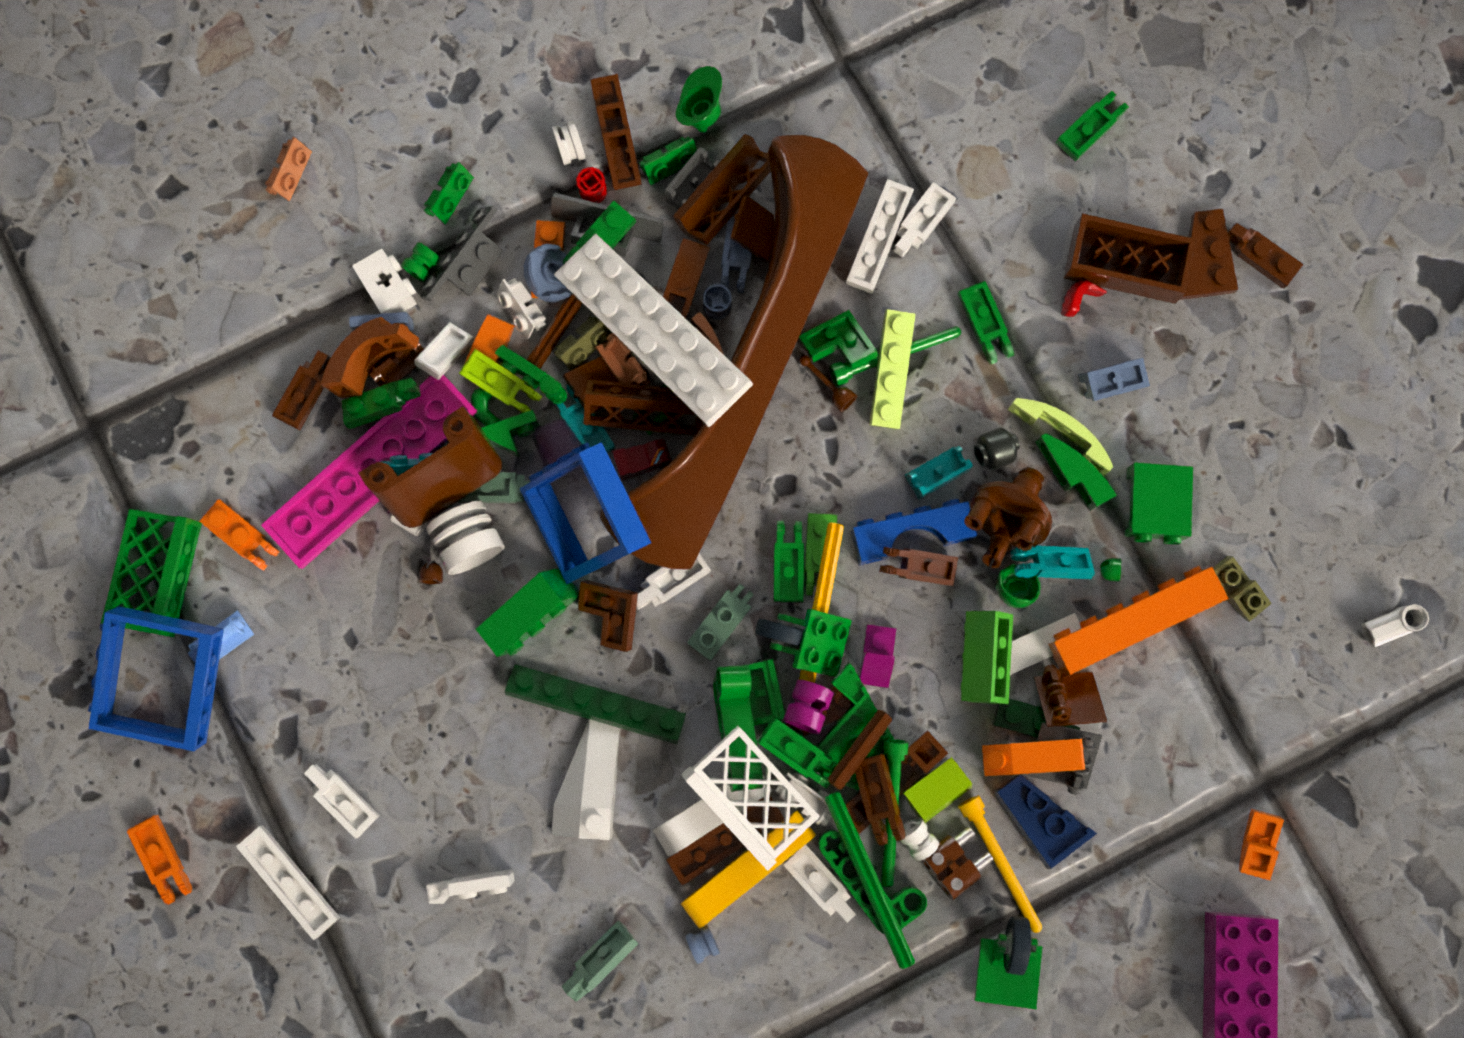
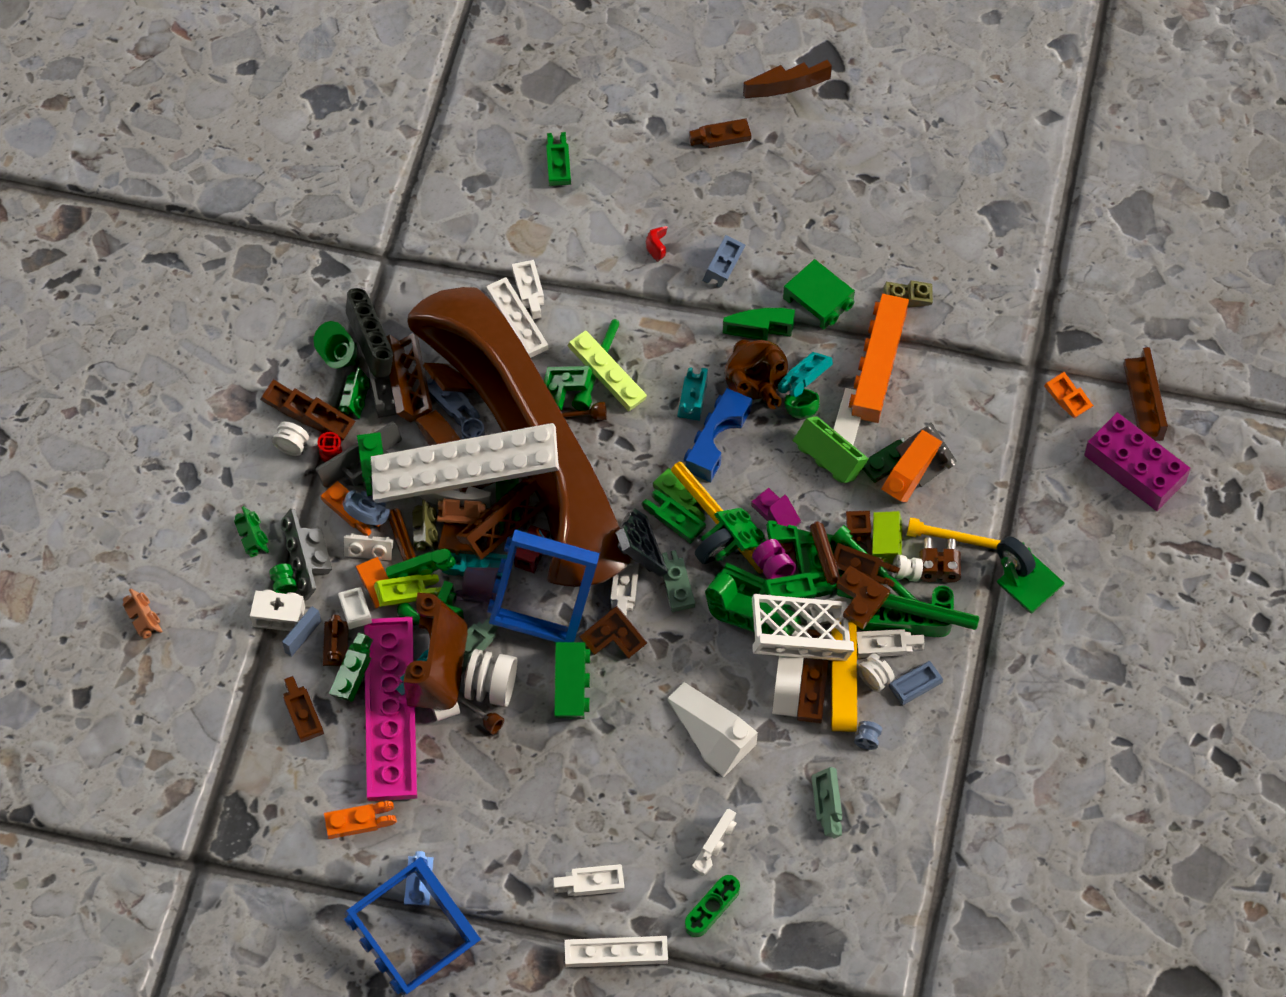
camera: 50 degrees left, 20 degrees down
(175, 572) = (345, 873): green fence -> none
(360, 351) = (310, 649): dark orange arch -> none
(384, 926) = (718, 888): none -> green beam
(595, 704) = (663, 688): dark green plate -> none
(721, 557) = (639, 542): none -> black plate
(729, 124) = (369, 332): none -> pearl dark grey beam
(774, 900) = (875, 673): none -> white wheel
(802, 943) = (916, 683): none -> sand blue tile
(844, 833) = (867, 596): none -> reddish brown plate
(922, 566) = (743, 442): reddish brown hinge -> none
(985, 320) = (624, 301): green hinge -> none
(996, 448) = (708, 352): pearl dark grey head -> none
(1044, 824) = (957, 497): dark blue wing -> none
(1068, 426) = (725, 307): yellowish green slope -> none
(1069, 698) = (893, 426): reddish brown hinge -> none
(1111, 569) = (837, 348): green hinge -> none
(1130, 258) = (658, 198): reddish brown brick -> none
(1212, 260) = (696, 161): reddish brown wing -> none
(1329, 927) = (1146, 395): none -> reddish brown fence
(1378, 263) = (779, 81): none -> reddish brown slope
(1393, 625) = (1000, 232): white piece -> none

